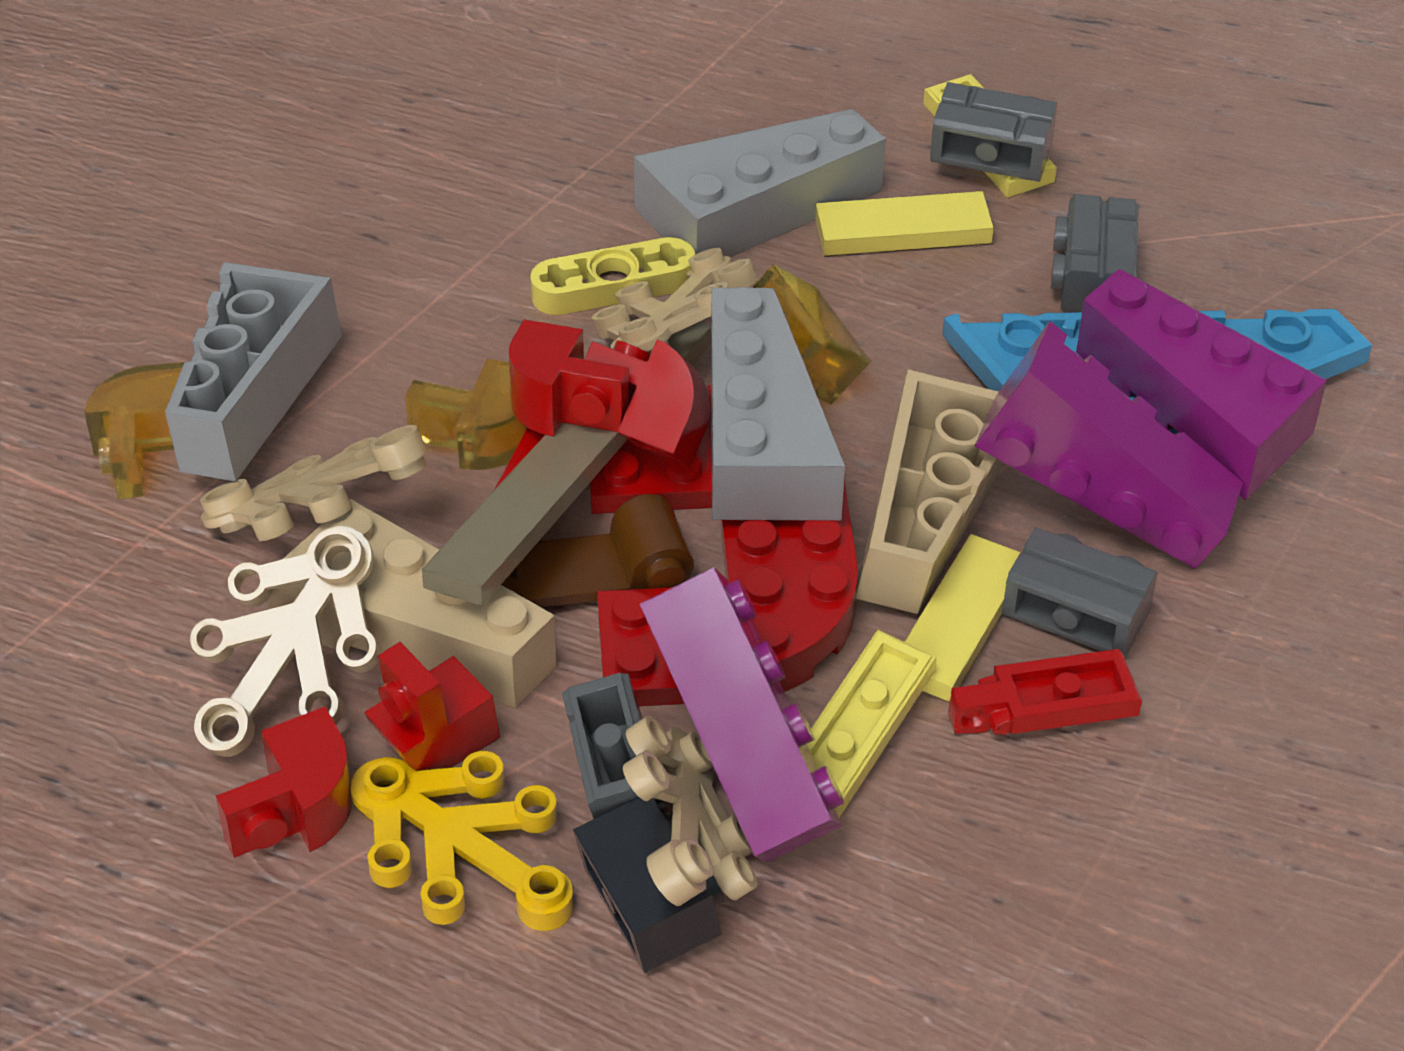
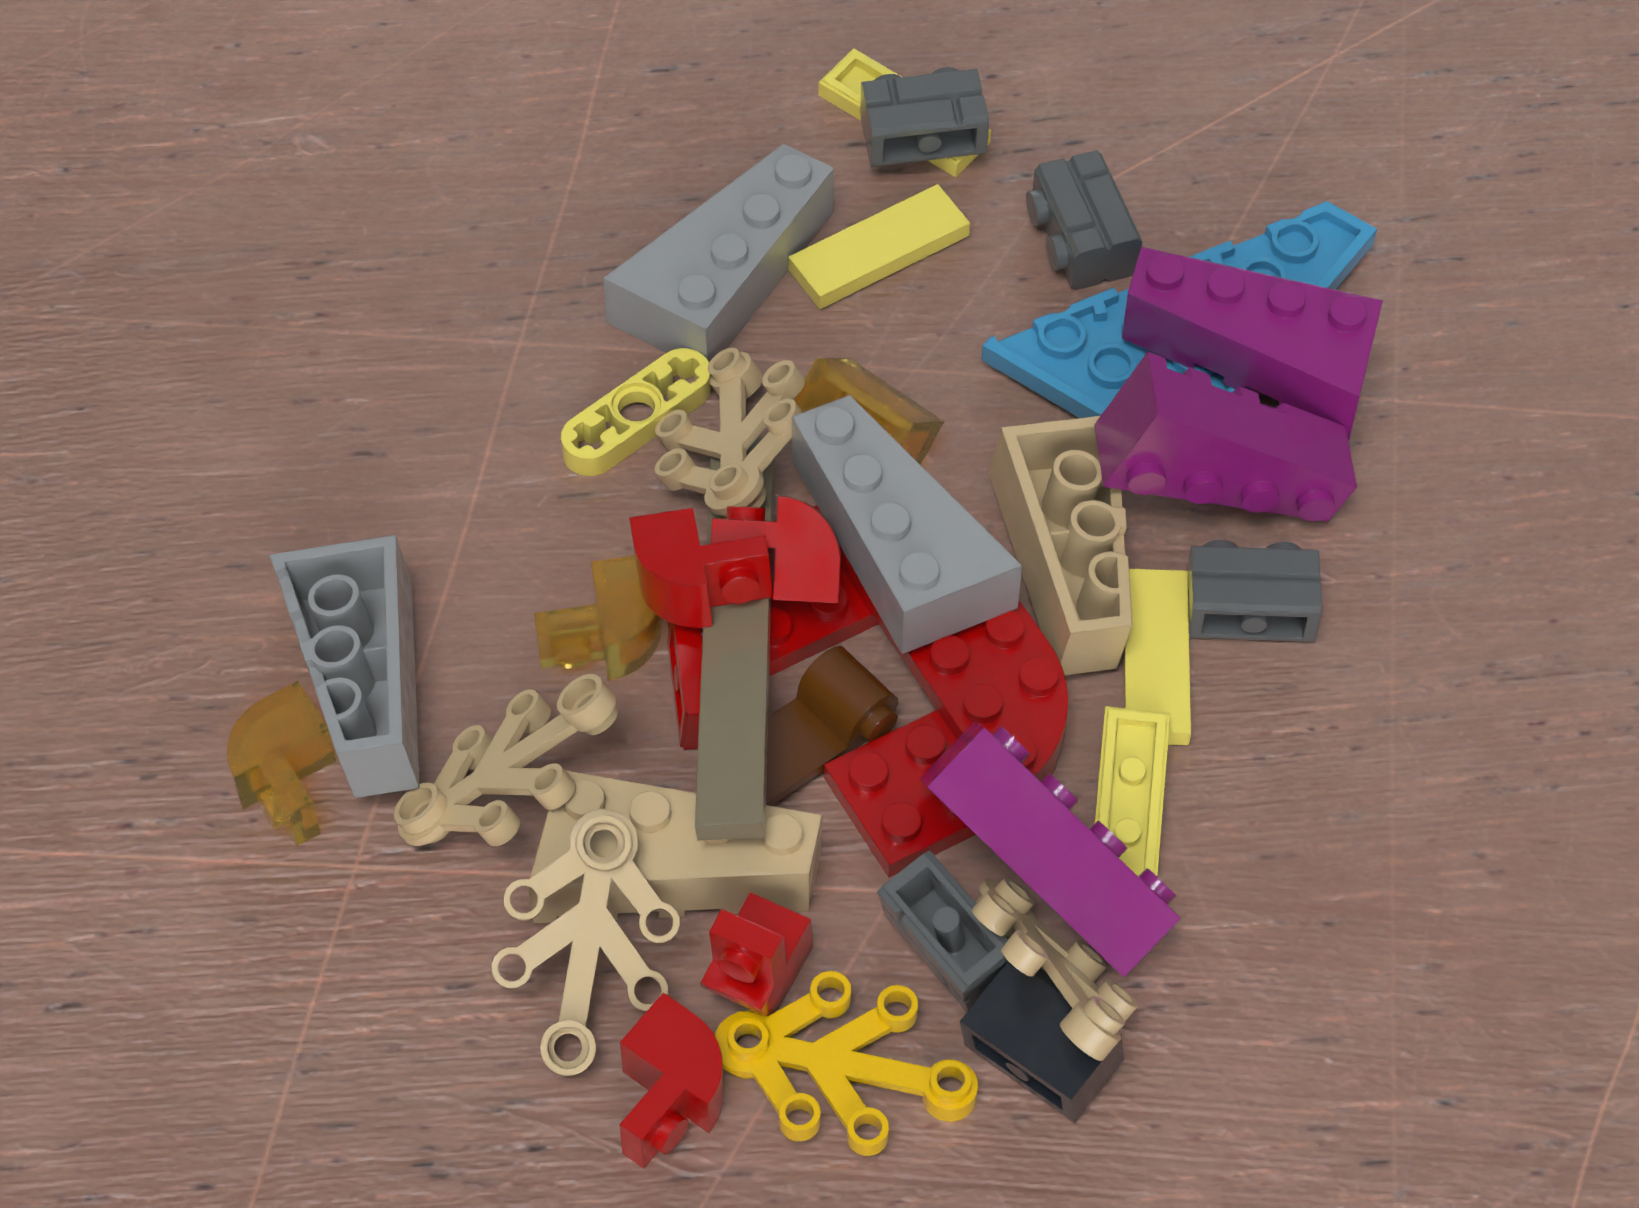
camera: 25 degrees left, 10 degrees up
(1047, 695) = (1276, 707): red hinge -> none

